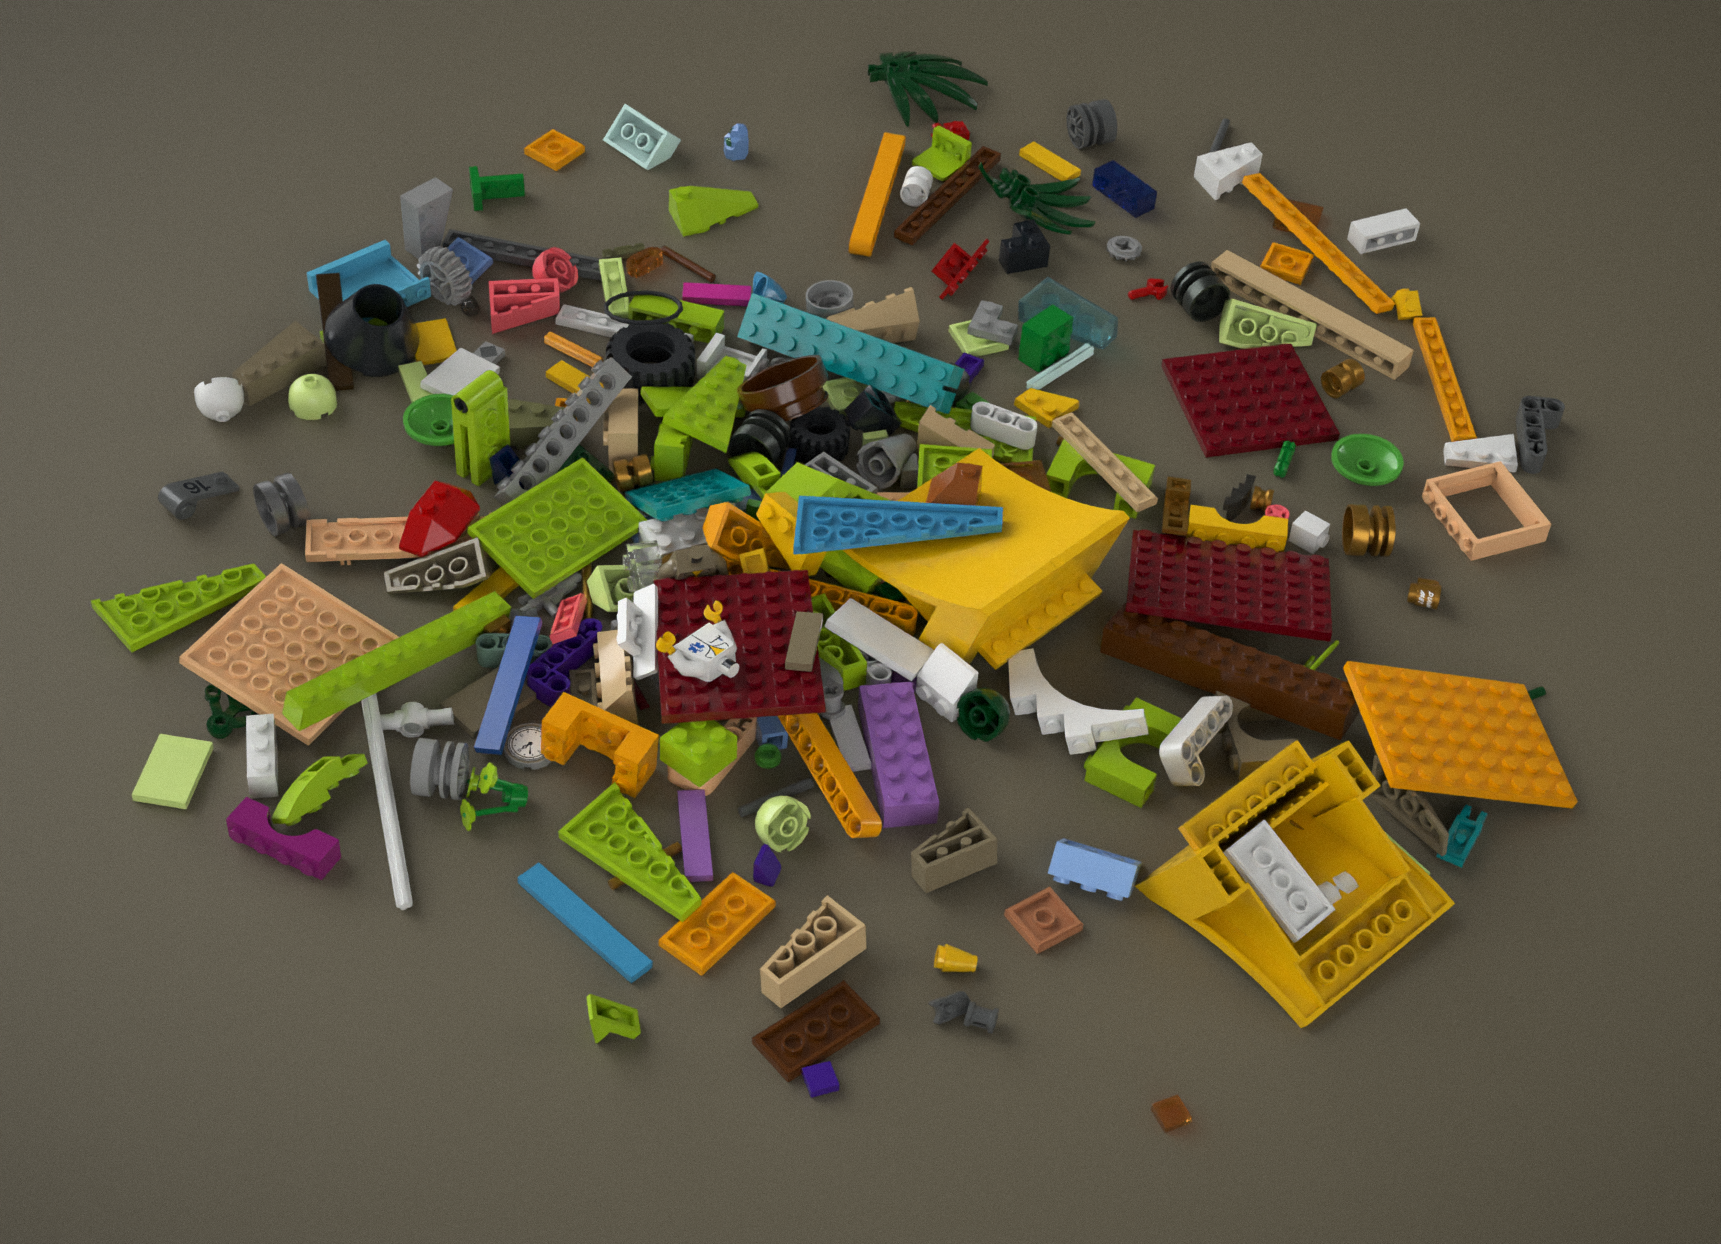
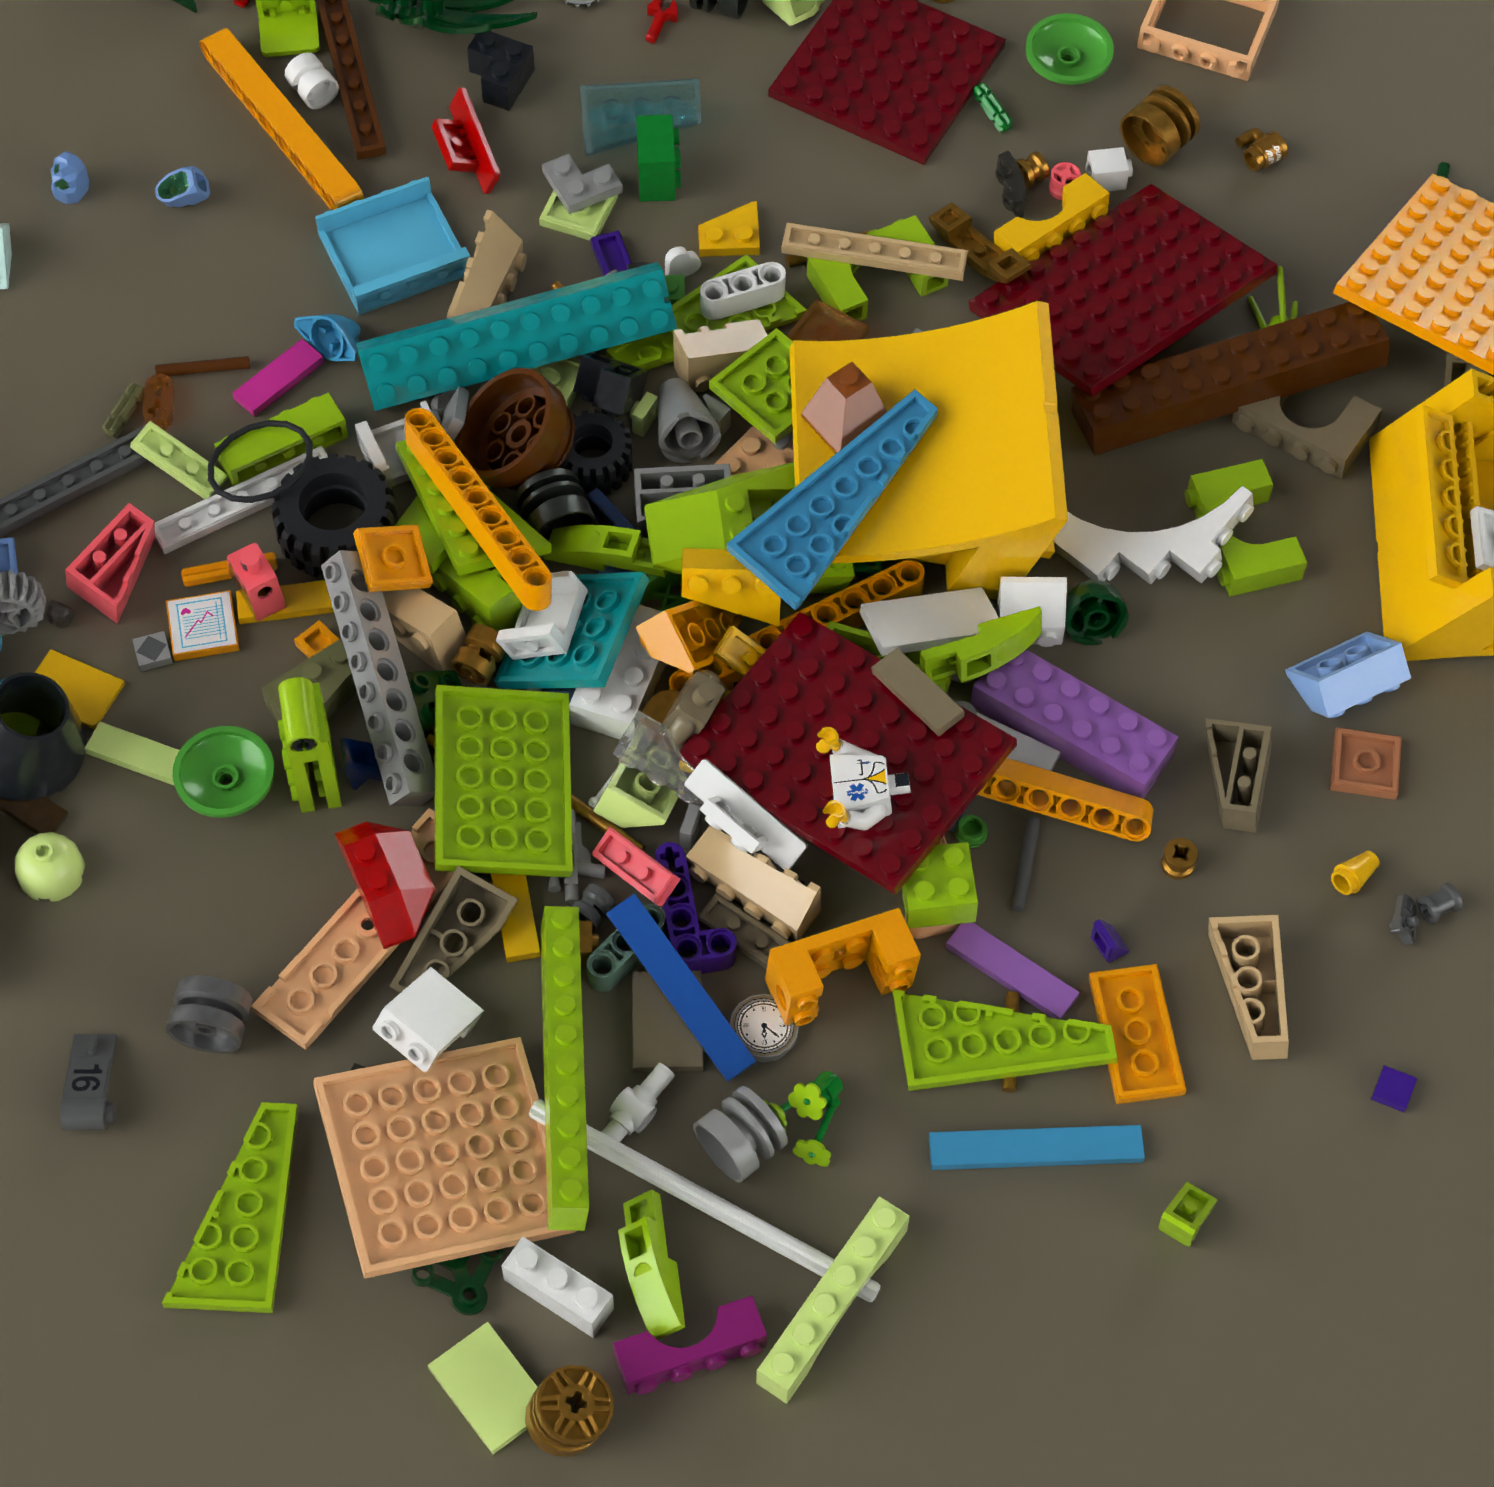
camera: 45 degrees left, 15 degrees up
(185, 816) = (549, 1415): none -> pearl gold wheel
(322, 886) = (816, 1319): none -> yellowish green arch
(371, 587) = (427, 1018): none -> white panel
(456, 373) = (165, 703): white tile -> none
(526, 362) = (202, 625): none -> white tile
(556, 264) = (99, 496): coral cylinder -> none
(569, 354) = (252, 573): none -> coral torso
(638, 386) = (393, 558): none -> light orange tile
(664, 482) = (550, 629): none -> white panel
(701, 207) = (137, 283): lime wedge -> none
(707, 398) = (478, 509): none -> light orange beam
(765, 361) = (455, 412): none -> light grey tile
(782, 823) = (1072, 885): yellowish green cylinder -> none
(787, 184) = (183, 187): none -> medium blue rock
(815, 1030) = (1334, 1049): reddish brown tile -> none
(829, 298) = (420, 293): light grey wheel -> none
(865, 872) = (1178, 867): none -> pearl gold wheel
(866, 271) = (391, 245): none -> medium azure panel
(884, 668) = (991, 648): none -> lime slope
(995, 395) = (681, 262): none -> white tile
(1060, 367) = (692, 172): light aqua axle -> none
(1182, 746) = (1284, 471): white beam -> none

